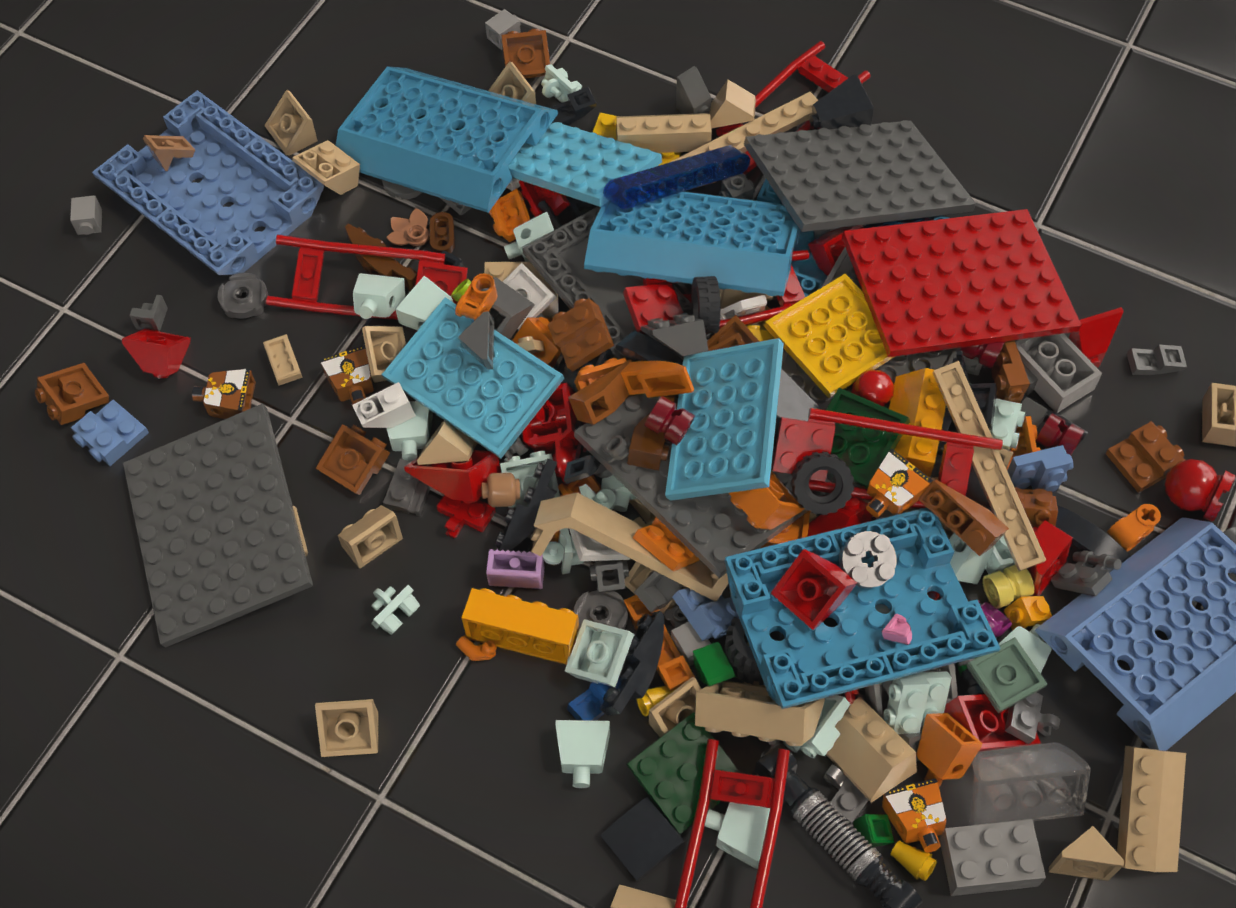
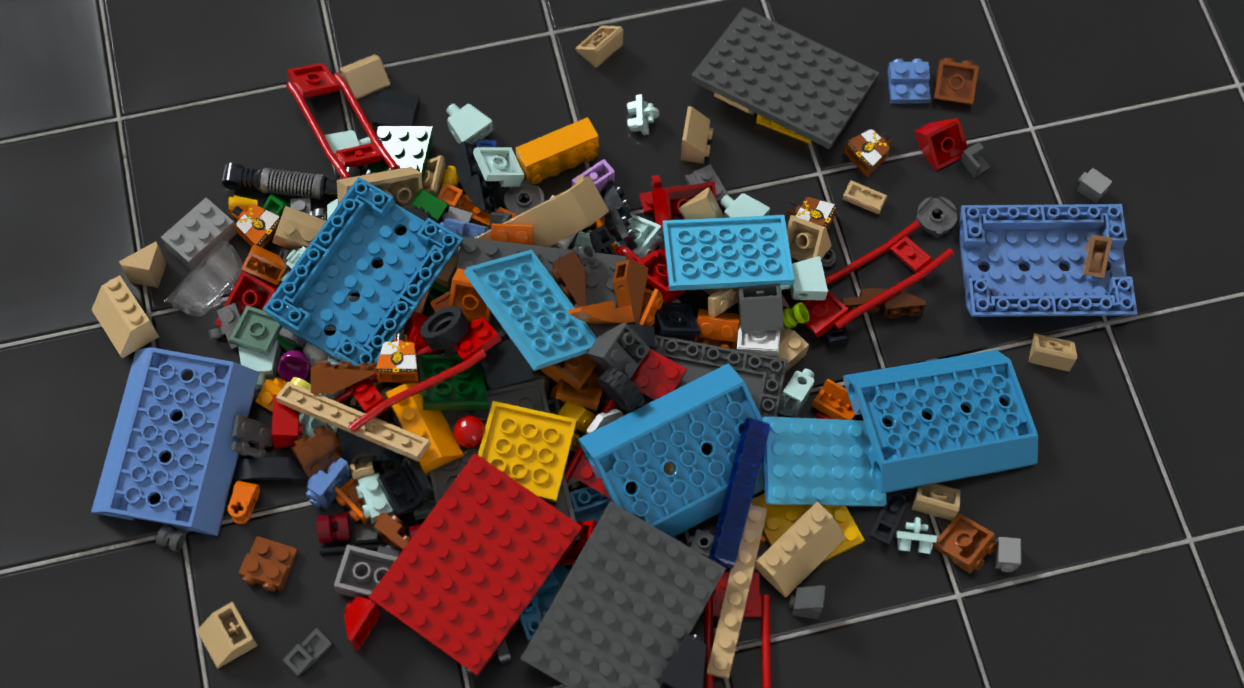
camera: 135 degrees right, 5 degrees up
(330, 167) = (986, 330): tan slope -> none
(353, 458) = (754, 173): dark orange plate -> none
(377, 295) = (852, 272): light aqua torso -> none
(384, 408) = (758, 195): white slope -> none
(407, 229) = (893, 344): nougat plate -> none
(442, 235) = (867, 355): reddish brown plate -> none
(474, 300) = (766, 282): orange piece -> none
(479, 339) = (736, 261): dark grey slope -> none
(501, 489) = (642, 207): medium nougat head -> none
(580, 333) = (689, 328): dark orange plate -> none
(669, 420) = (570, 277): dark red wheel -> none
(732, 106) = (771, 615): tan slope -> none
(813, 588) = (394, 260): red slope -> none
(884, 559) = (379, 291): plate -> none
(898, 630) = (330, 277): bright pink tile -> none
(1197, 486) = (219, 555): red tile -> none

